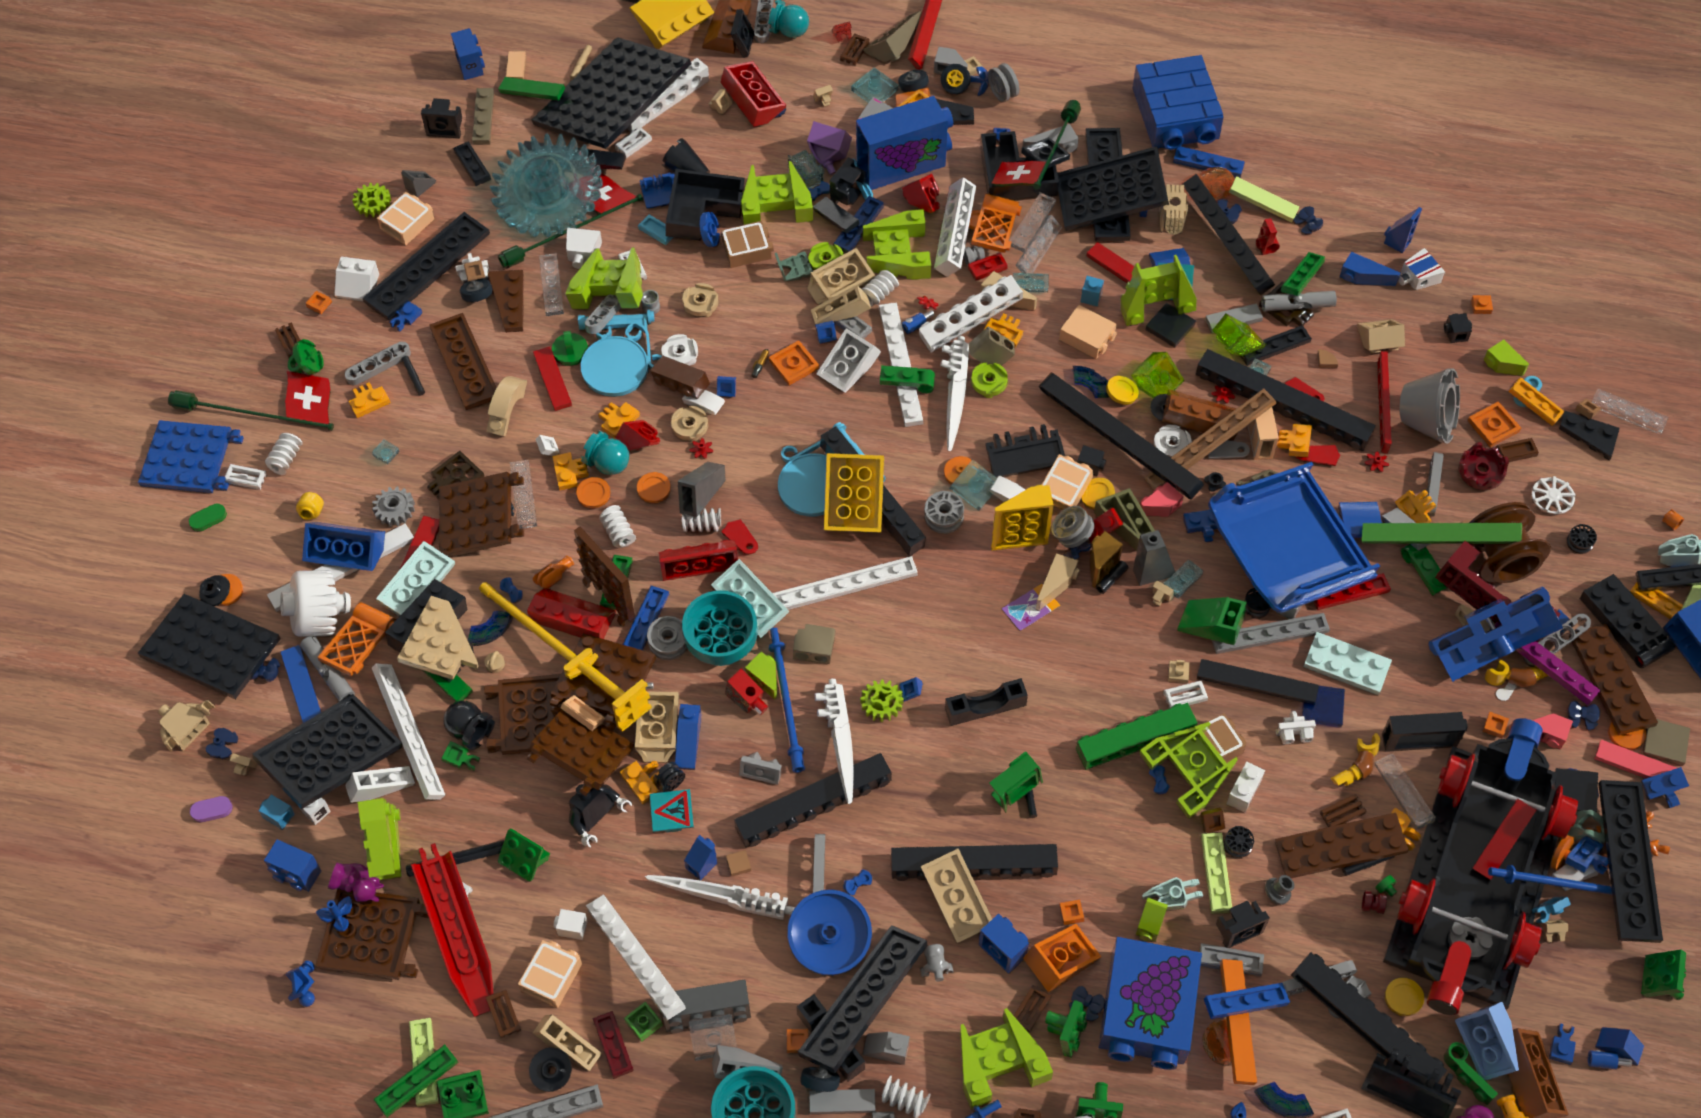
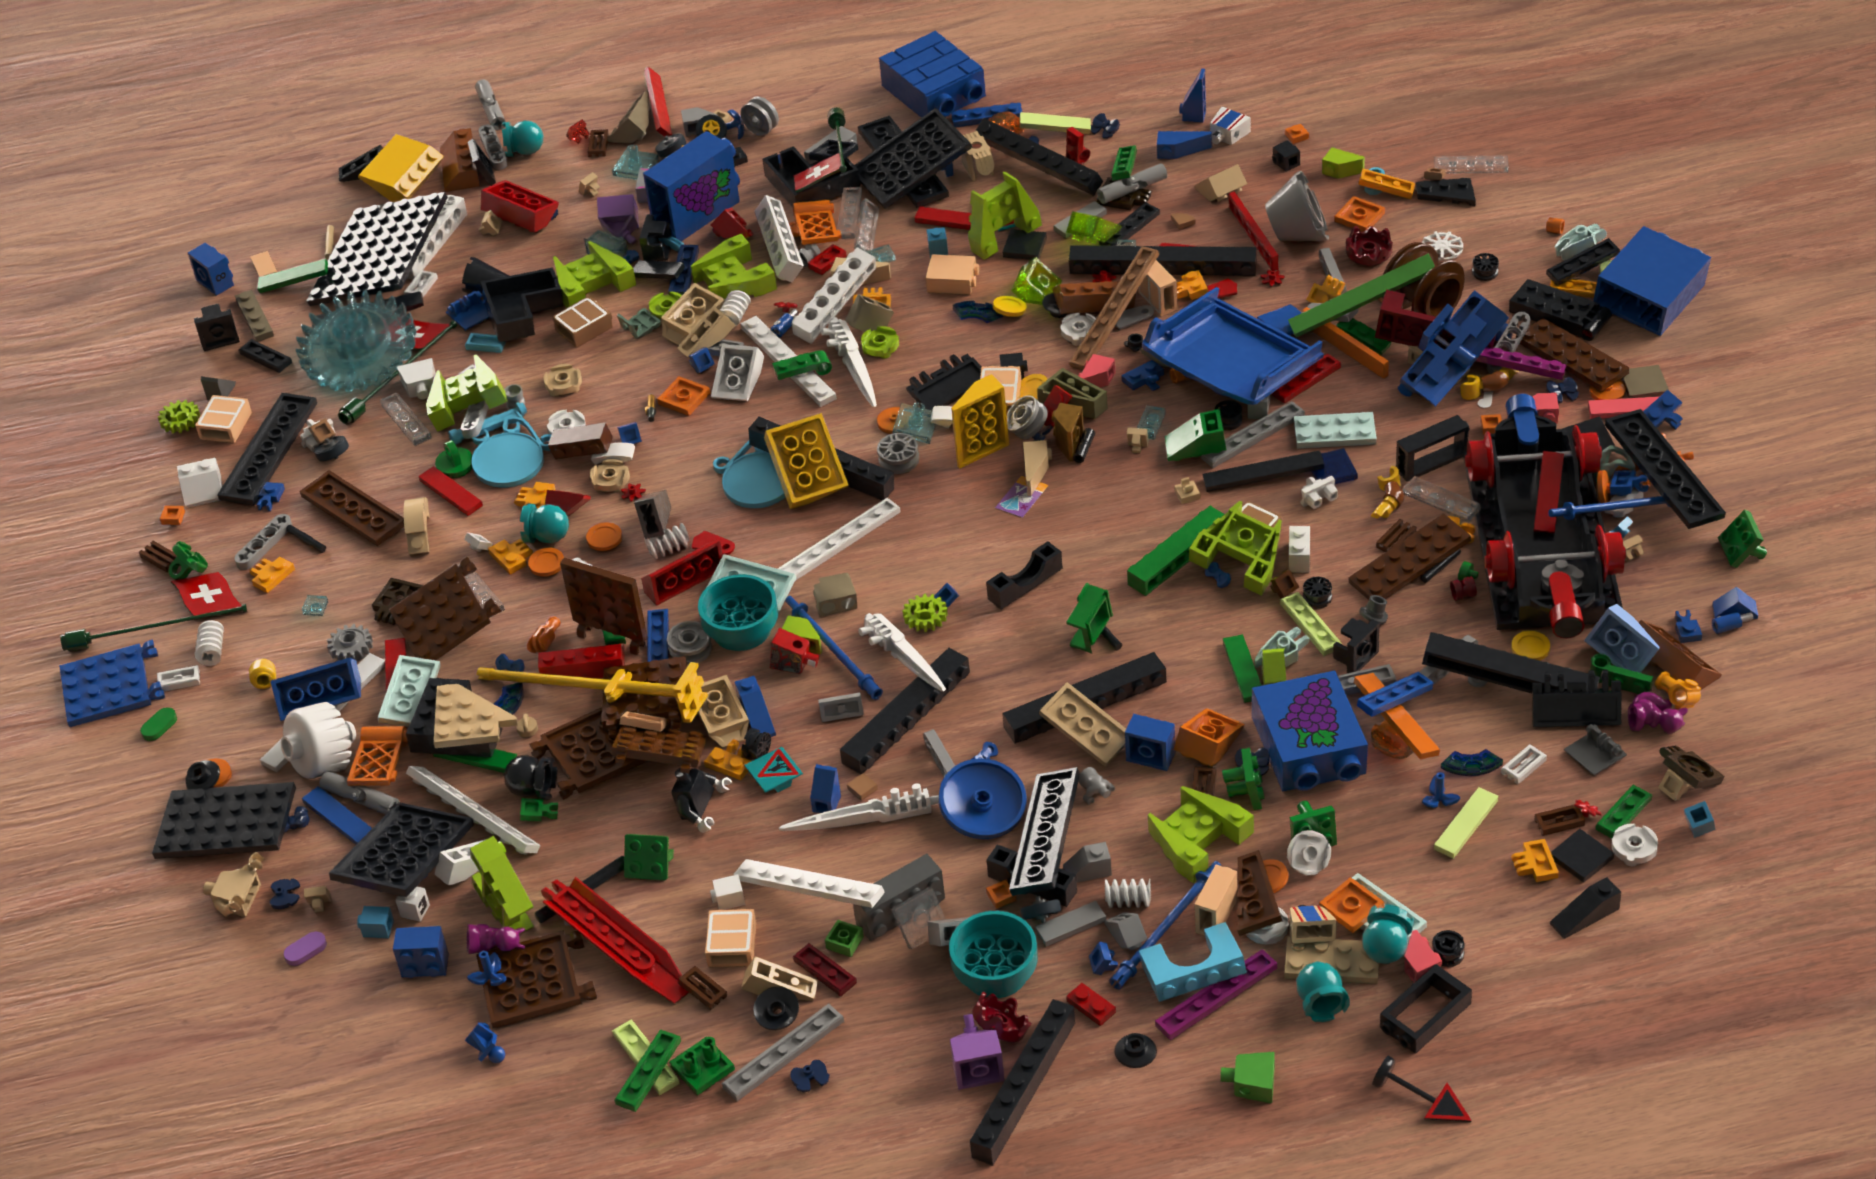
camera: 20 degrees left, 15 degrees down
(509, 296) = (369, 445): reddish brown wing -> none
(708, 229) = (541, 319): blue tile -> none
(1072, 912) = (1198, 700): orange plate -> none
(1121, 436) = (1029, 335): black beam -> none
(1131, 894) = (1241, 665): none -> green tile
(1152, 559) = (1115, 409): dark grey slope -> none
(1171, 700) = (1218, 502): white tile -> none
(1410, 578) = (1353, 348): none -> orange tile
(1518, 449) = (1394, 223): reddish brown tile -> none

